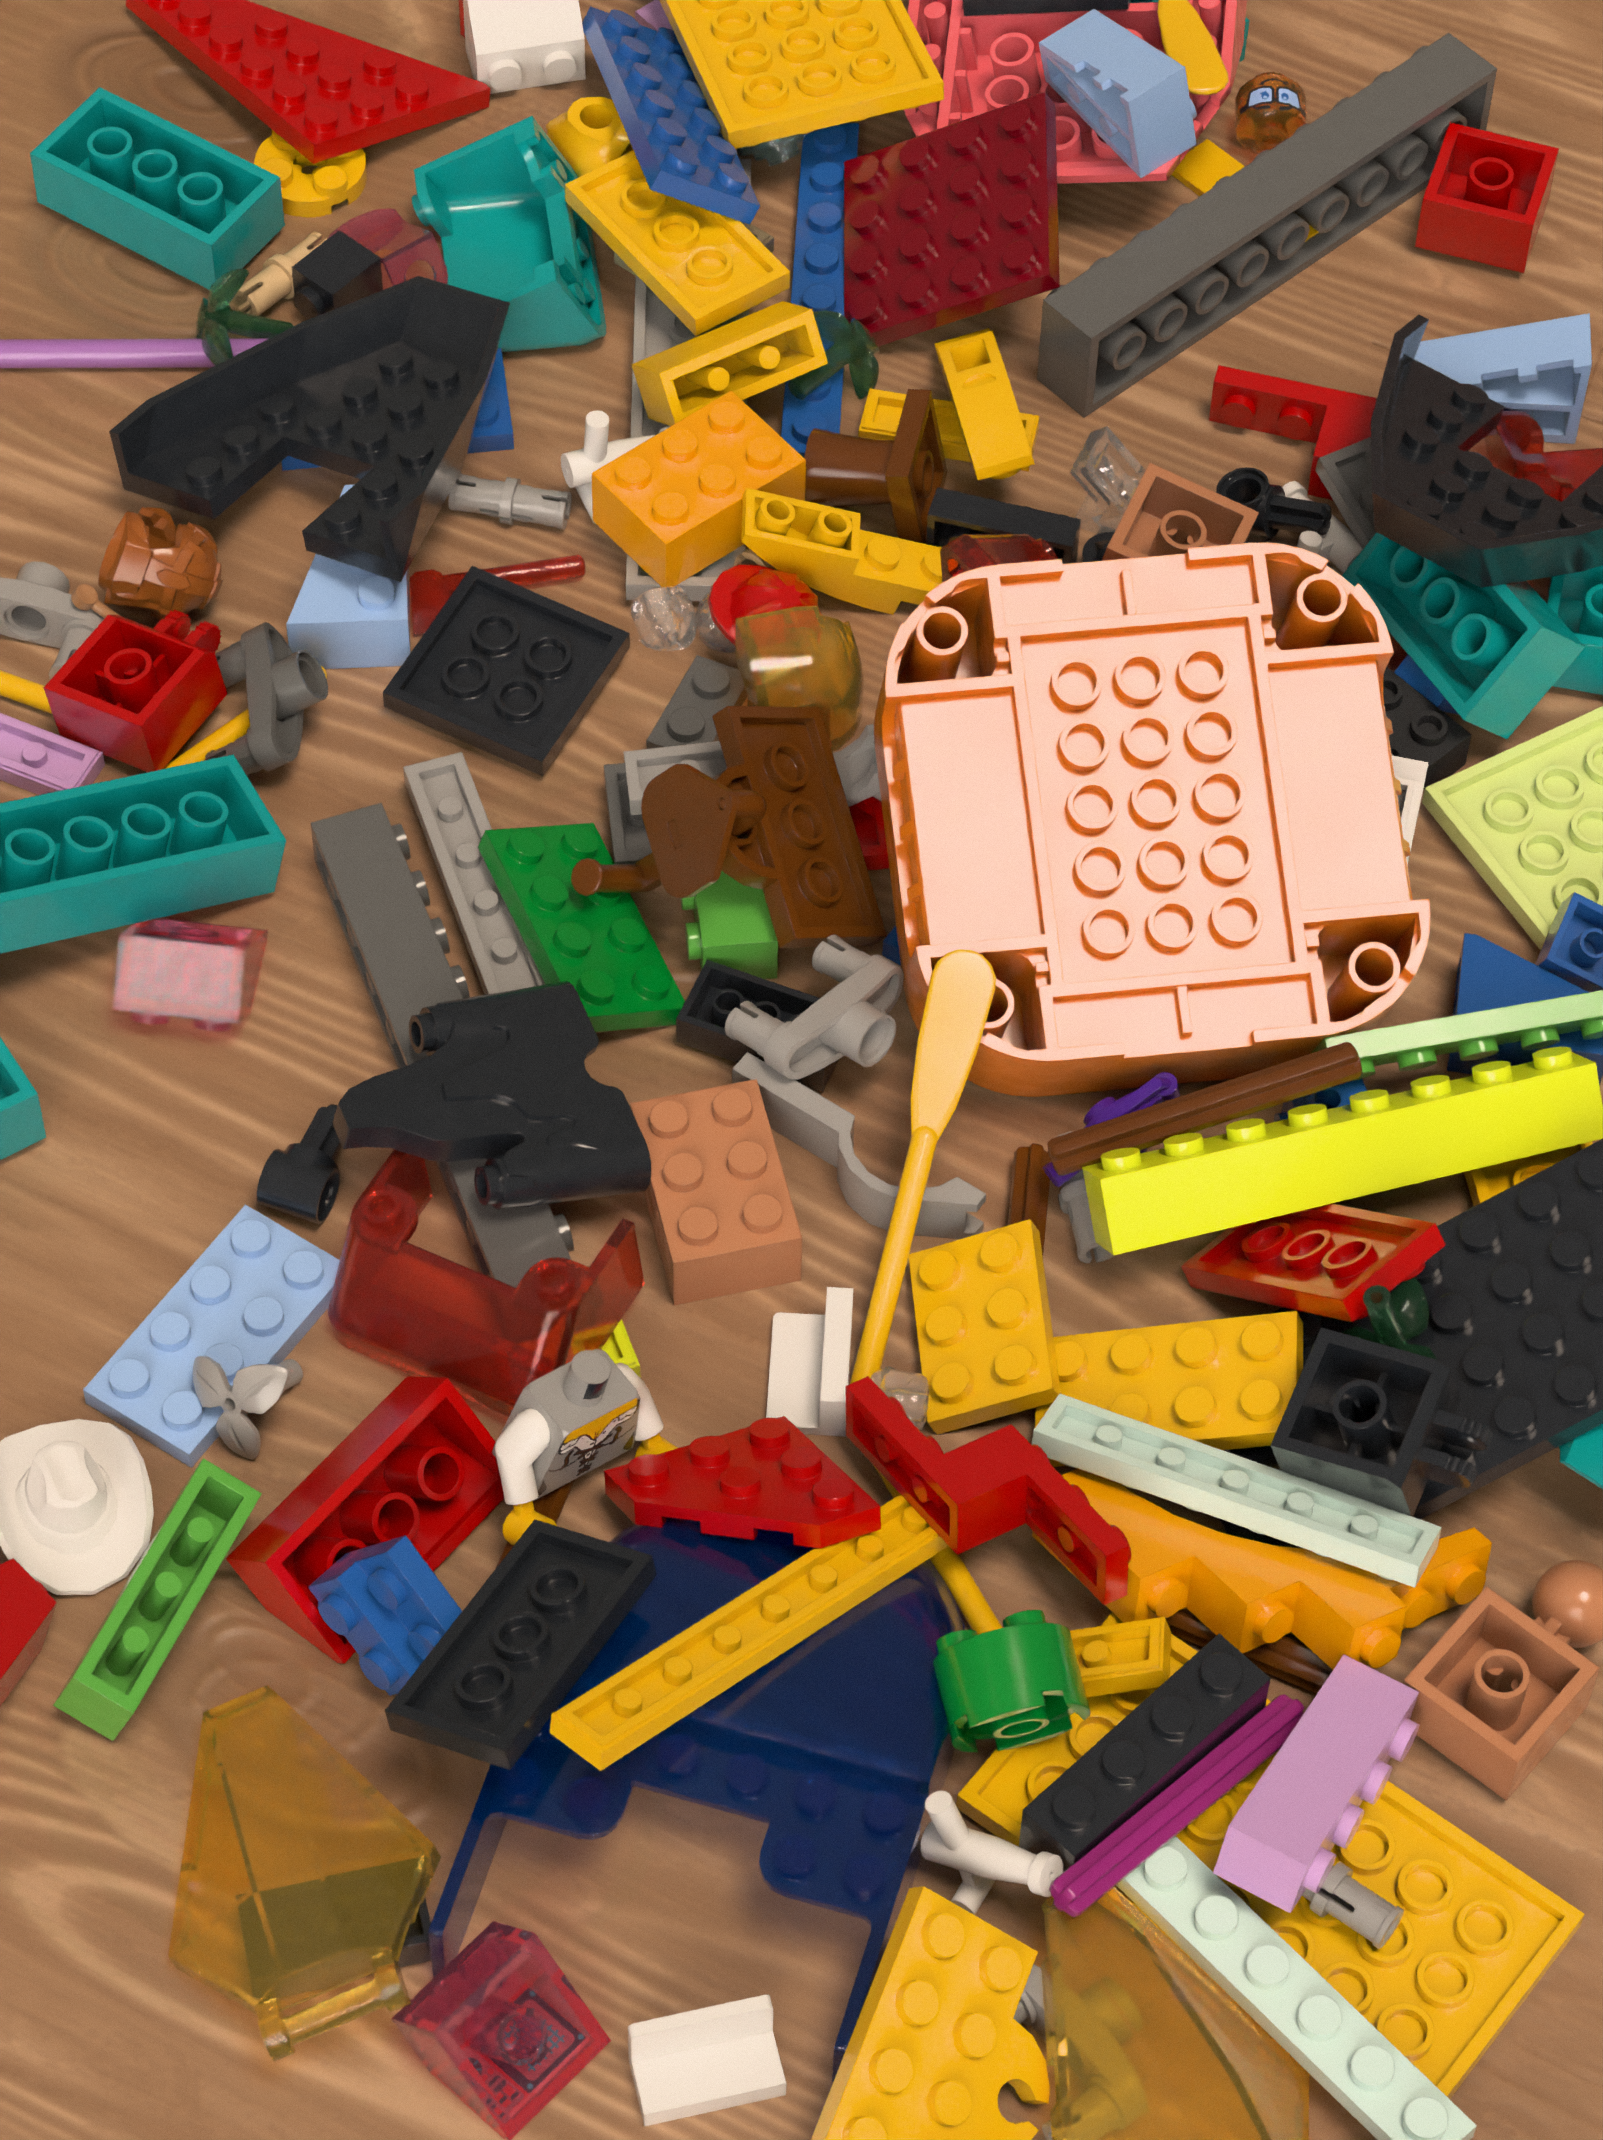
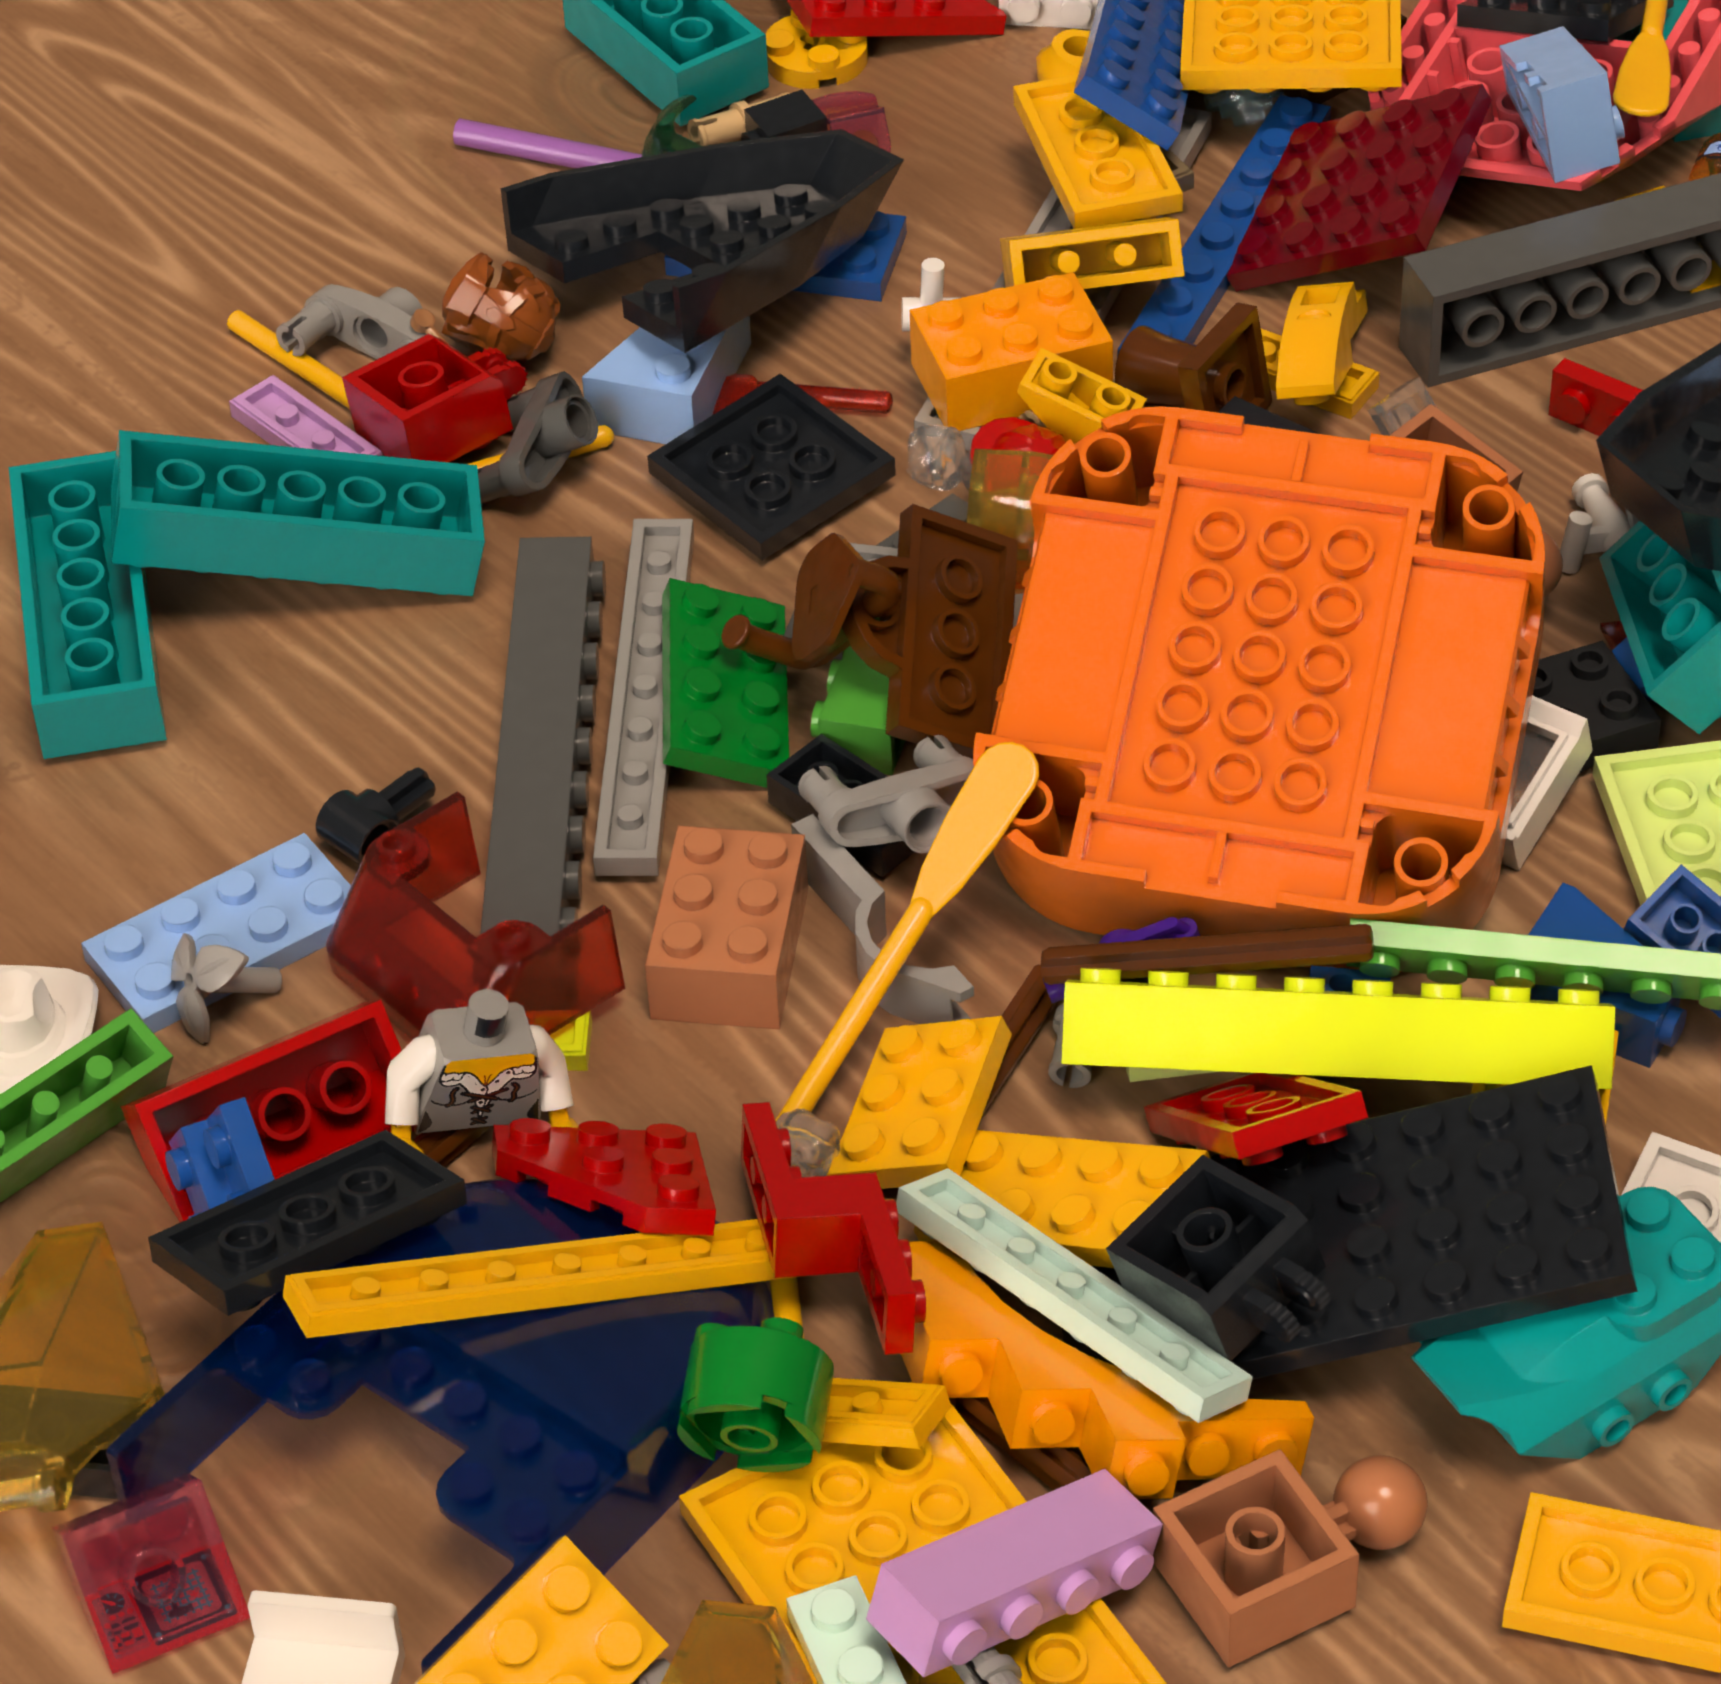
camera: 25 degrees right, 10 degrees down
(188, 972) = (354, 635): clear pink slope -> none
(508, 1089) = (563, 787): black rock -> none
(510, 501) = (850, 336): light grey pin -> none
(516, 235) = (961, 133): teal windscreen -> none
(812, 1366) = (745, 1080): white panel -> none
(852, 346) = (1218, 272): clear green plant -> none
(981, 1856) = (668, 1553): white piece -> none
(1145, 1752) = (859, 1509): black brick -> none
(1175, 1807) = (833, 1564): magenta axle -> none
(1276, 511) = (1556, 487): black axle -> none
(1396, 1316) = (1307, 1183): clear green plant -> none

